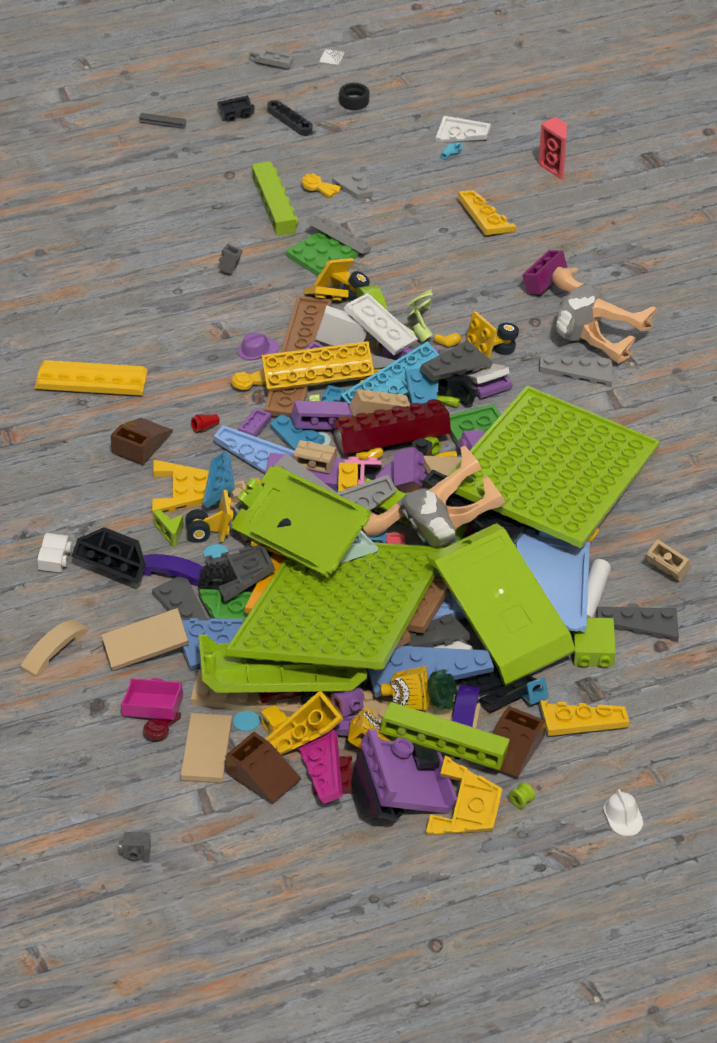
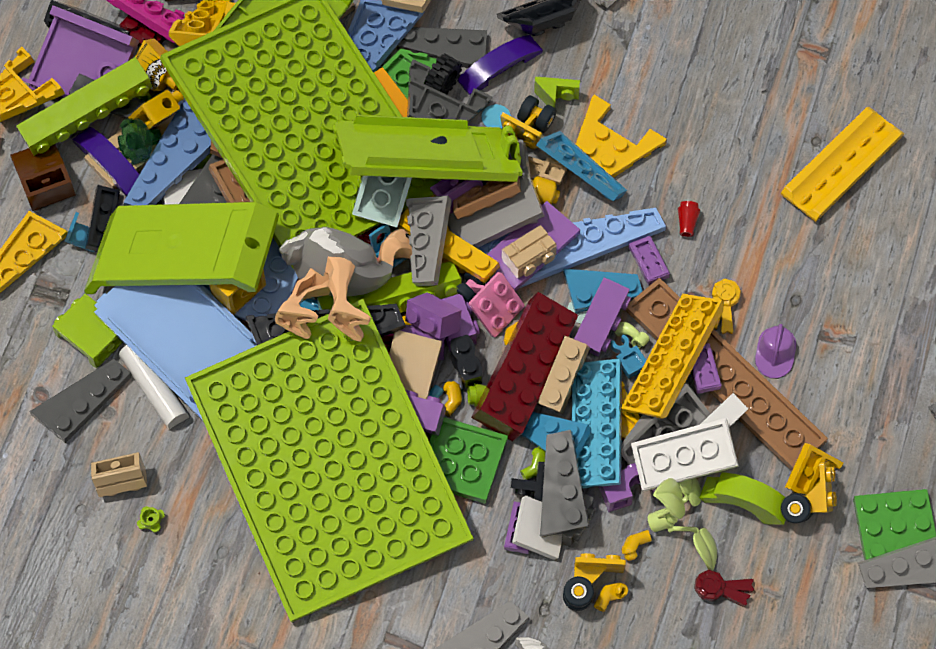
camera: 130 degrees right, 20 degrees up
(138, 439) = (706, 143): reddish brown slope -> none
(438, 299) = (711, 586): none -> dark red piece
(674, 538) = (150, 512): none -> lime plate

